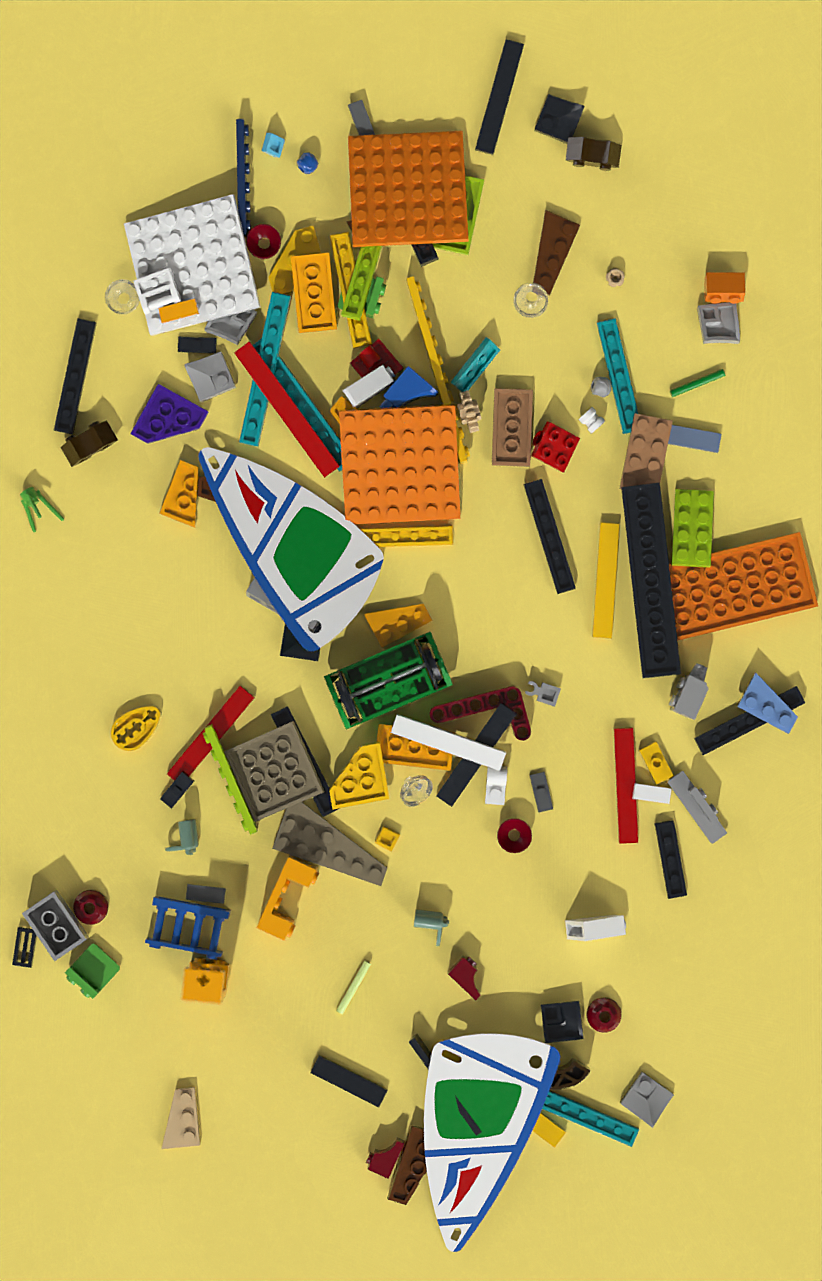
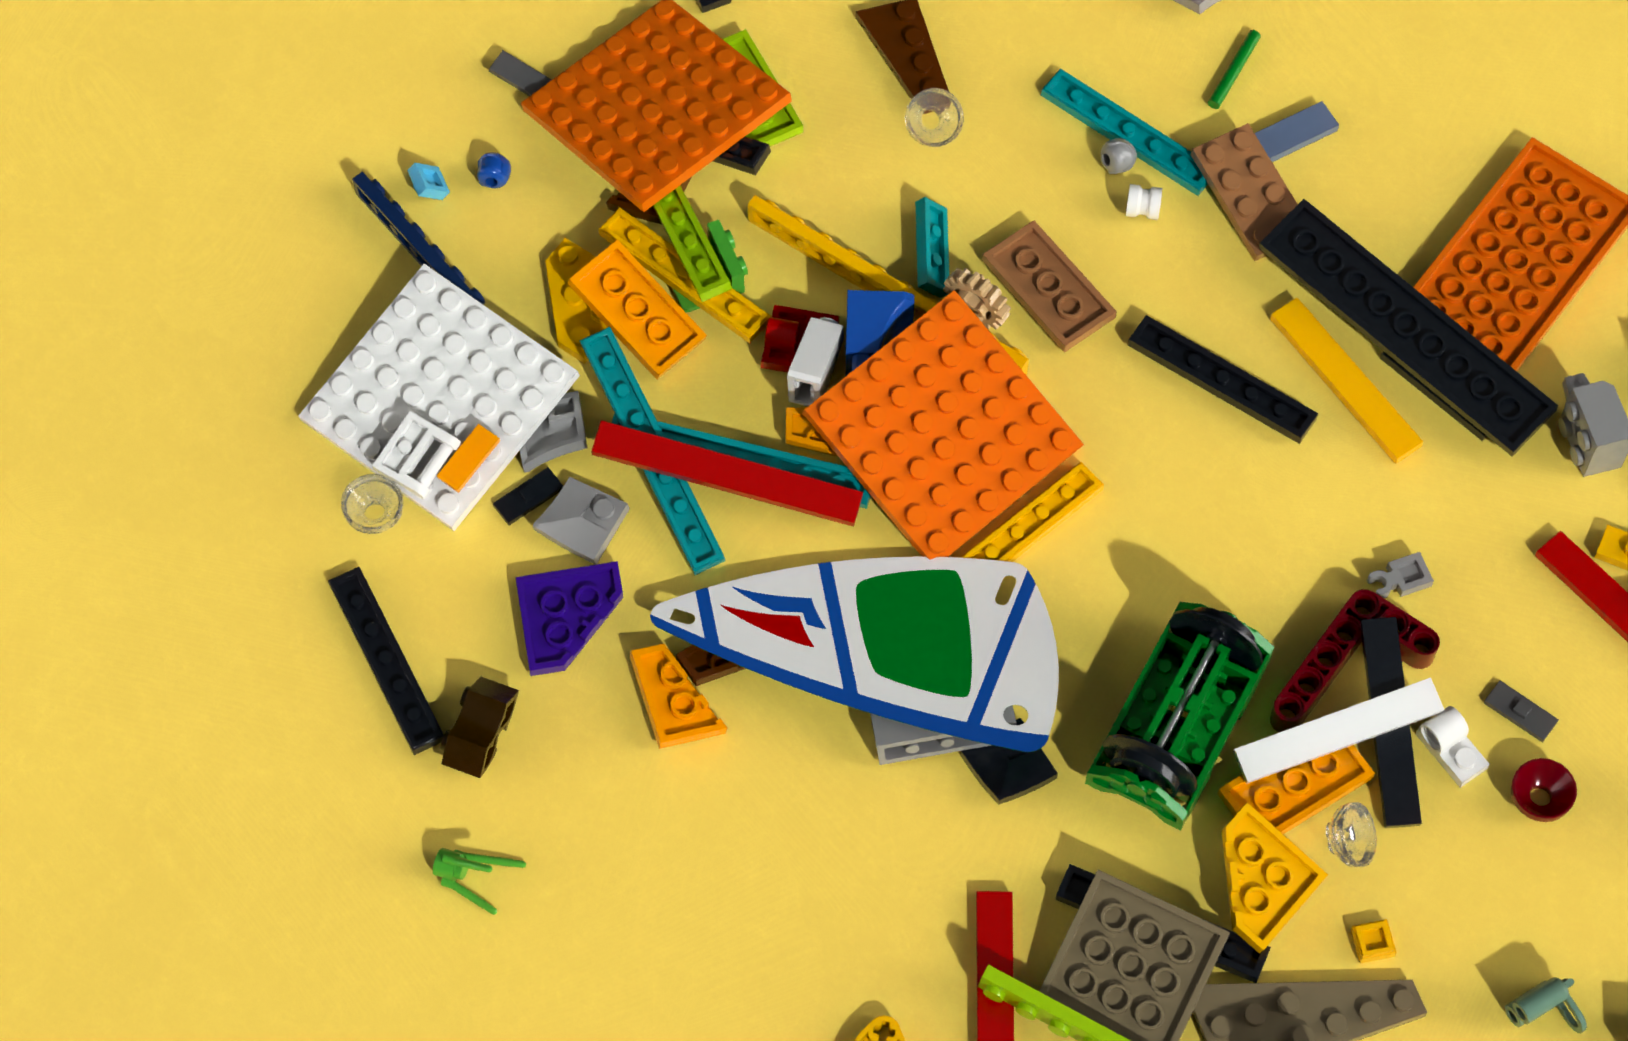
camera: 40 degrees left, 25 degrees down
(256, 234) = (514, 287): dark red piece -> none
(398, 622) = (1120, 641): light orange wing -> none
(554, 446) = (1125, 265): red plate -> none
(610, 277) = (1019, 18): tan plate -> none
(692, 528) = (1395, 230): lime plate -> none

